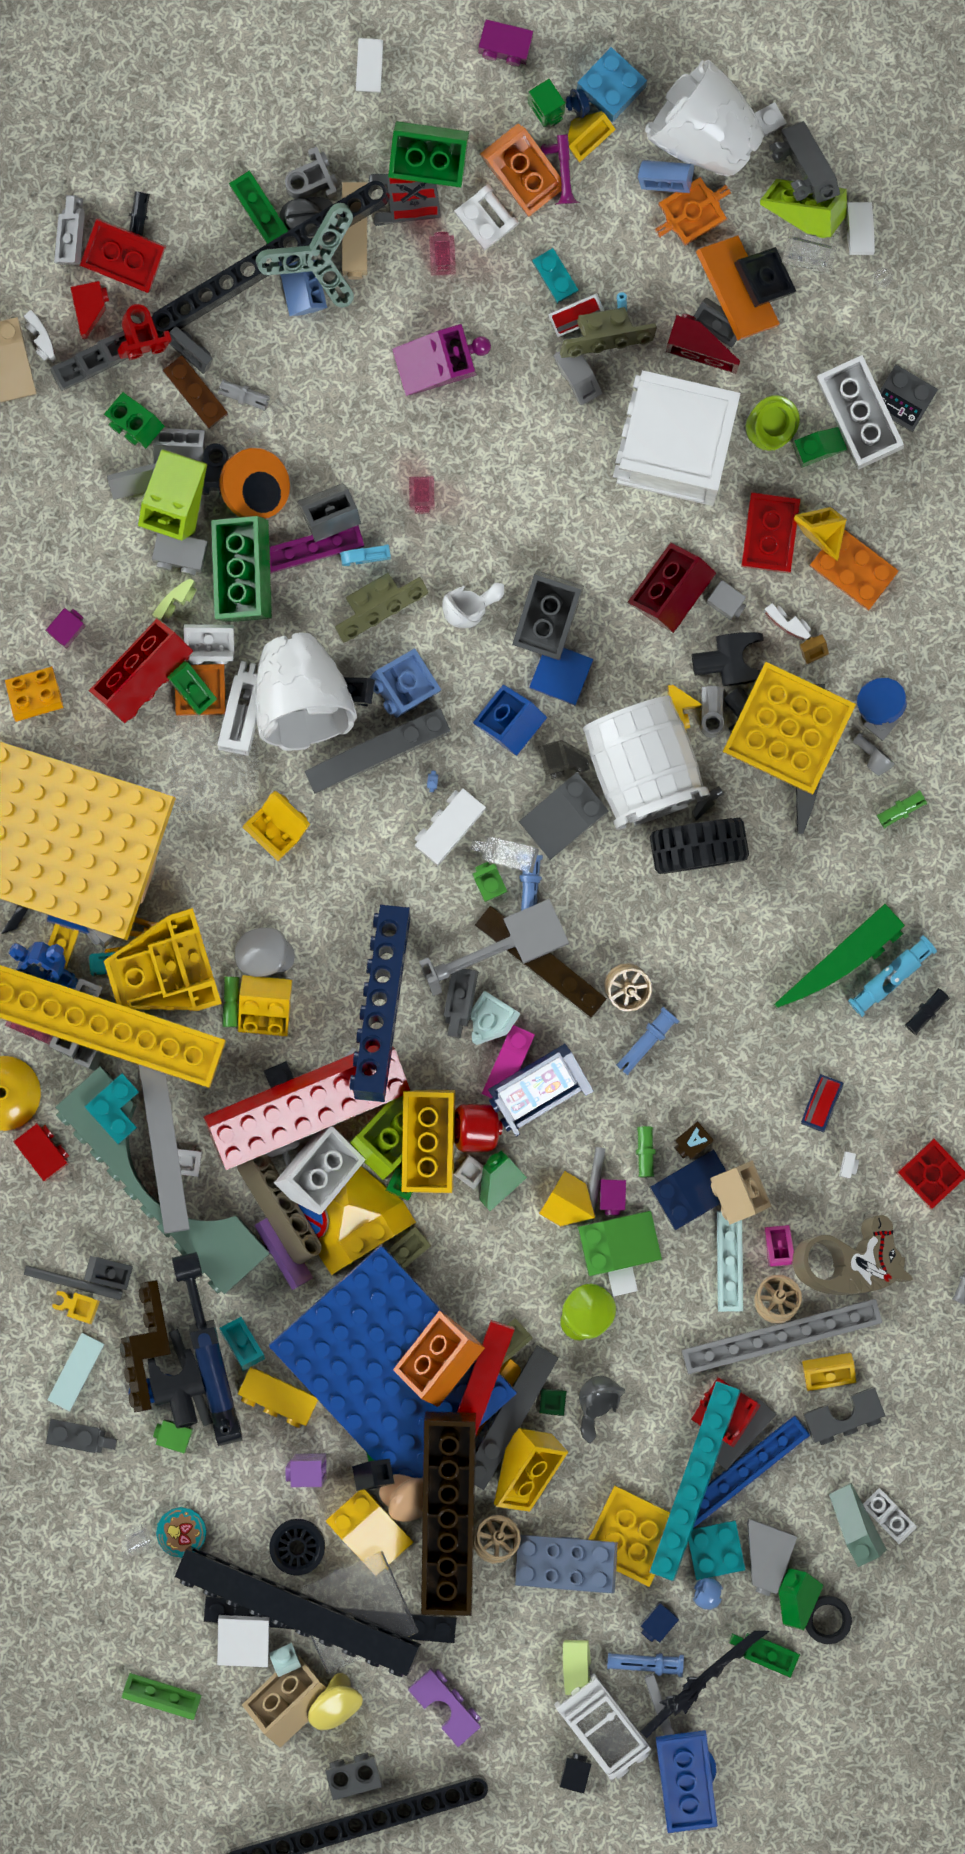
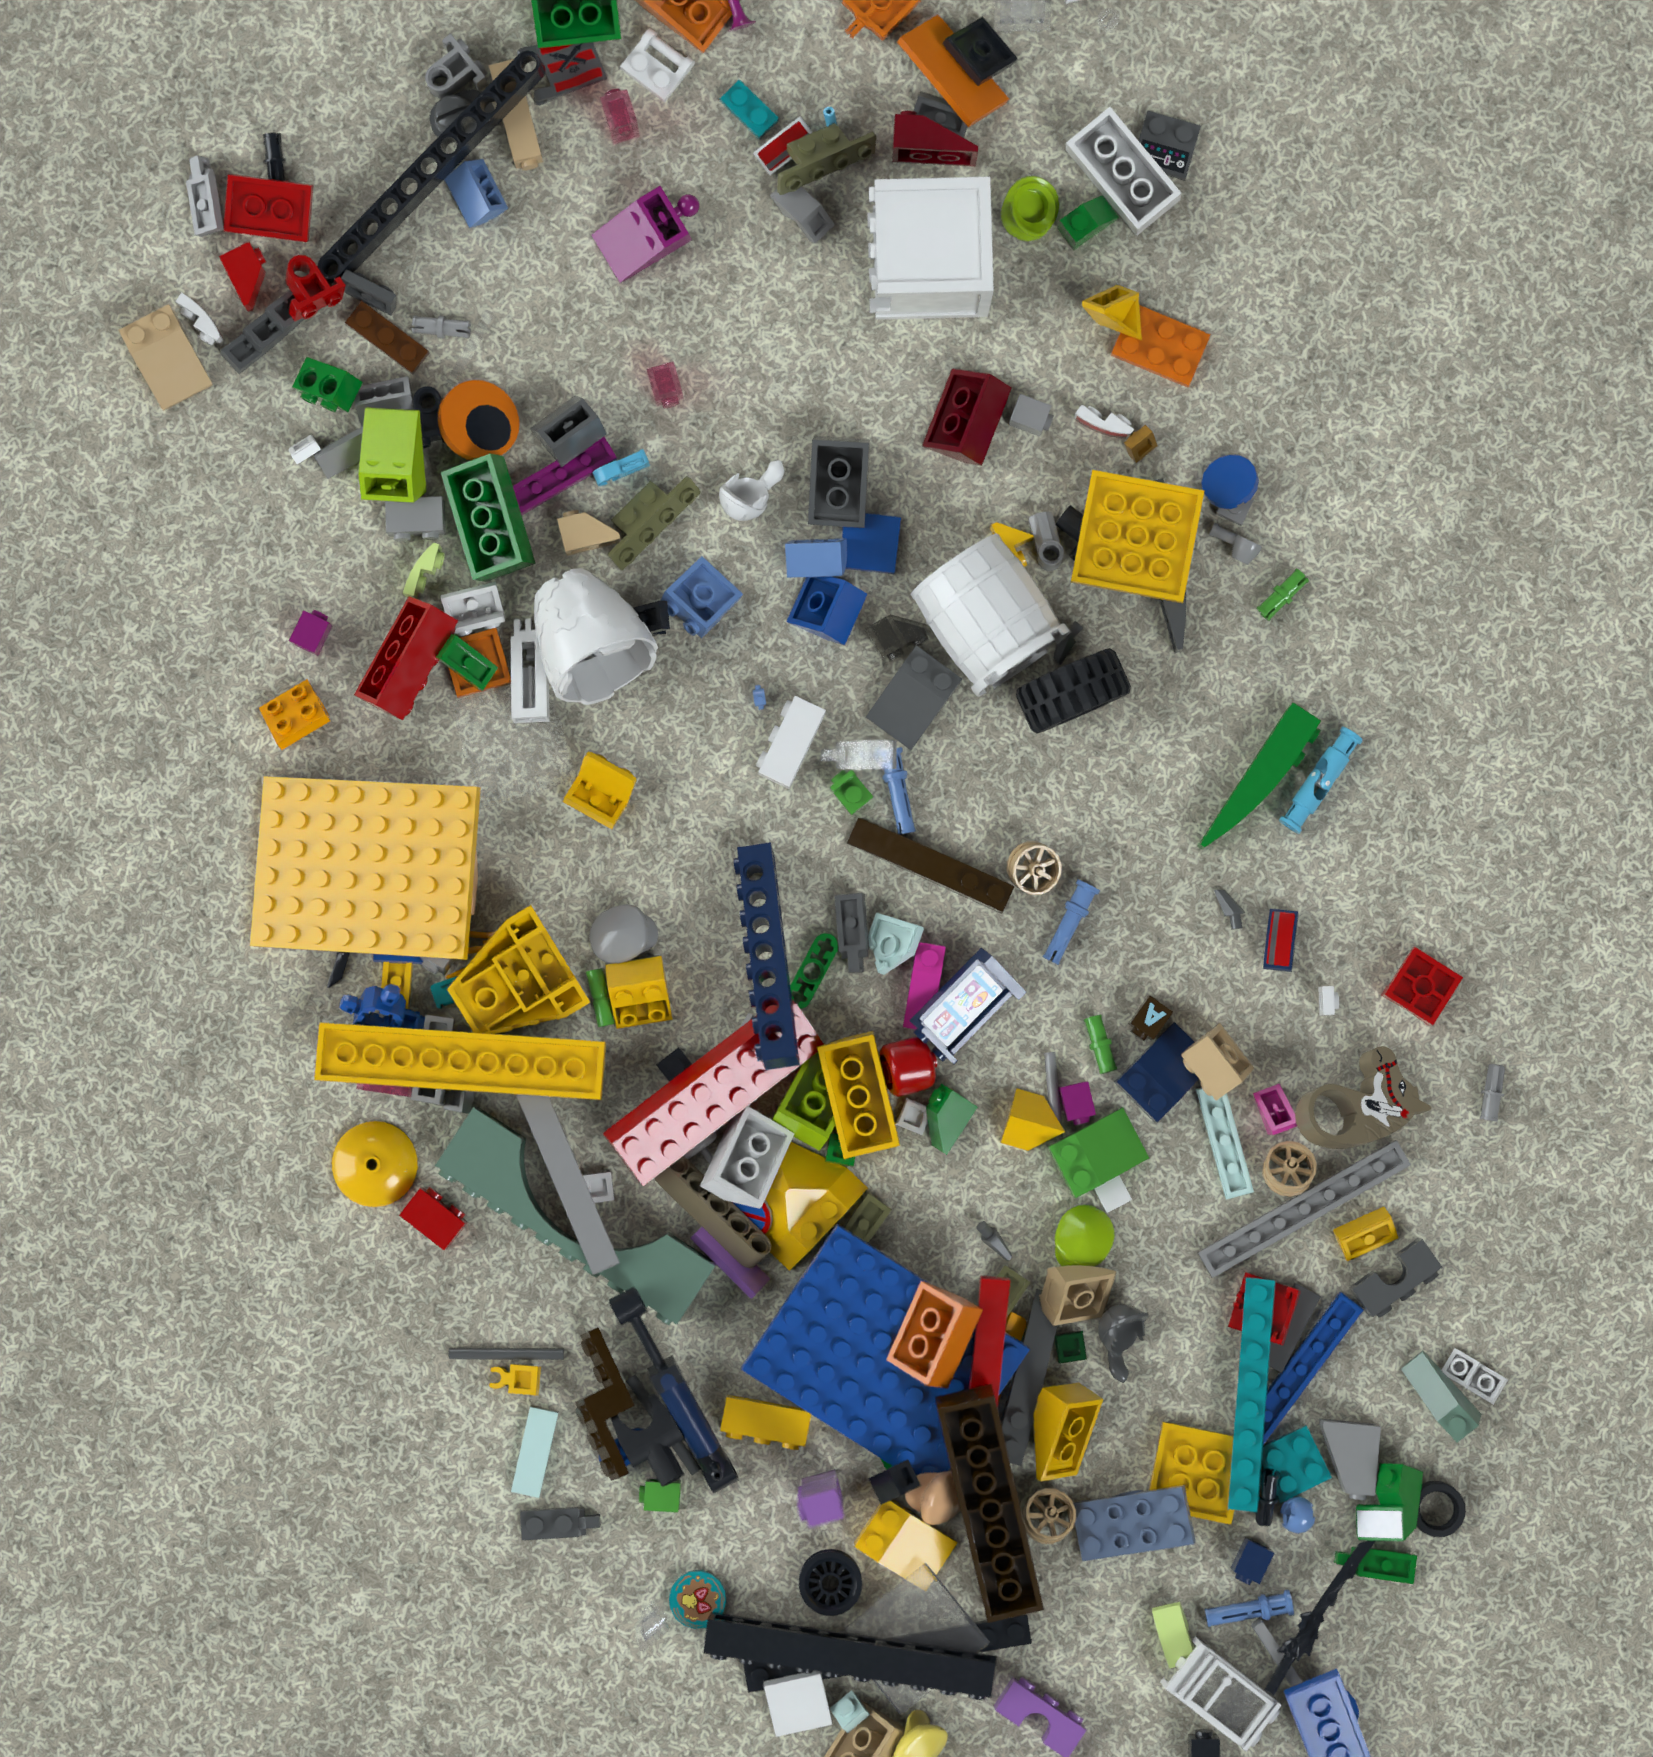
camera: 15 degrees left, 0 degrees up
(100, 469) = (304, 449): none -> white tile
(107, 1108) = (493, 1150): teal plate -> none
(108, 1272) = (542, 1333): dark grey slope -> none
(242, 1343) = (711, 1372): teal plate -> none
(258, 207) = (402, 116): green plate -> none
(306, 253) = (468, 151): sand green piece -> none
(320, 602) = (584, 533): none -> tan slope
(378, 750) = (691, 678): dark grey slope -> none
(435, 1017) = (807, 960): none -> green beam
(511, 675) = (816, 557): none -> medium blue brick
(511, 1294) = (992, 1238): none -> dark grey bar
(531, 931) = (913, 834): light grey piece -> none
(569, 1357) = (1076, 1293): none -> tan slope
(685, 1571) = (1267, 1497): none -> black axle
(728, 659) = (1050, 479): black connector -> none
(770, 533) = (1059, 329): red plate -> none
(777, 1618) = (1383, 1522): none -> flat silver slope
(786, 1065) = (1230, 908): none -> dark grey bar
(927, 1011) = (1369, 809): black pin -> none

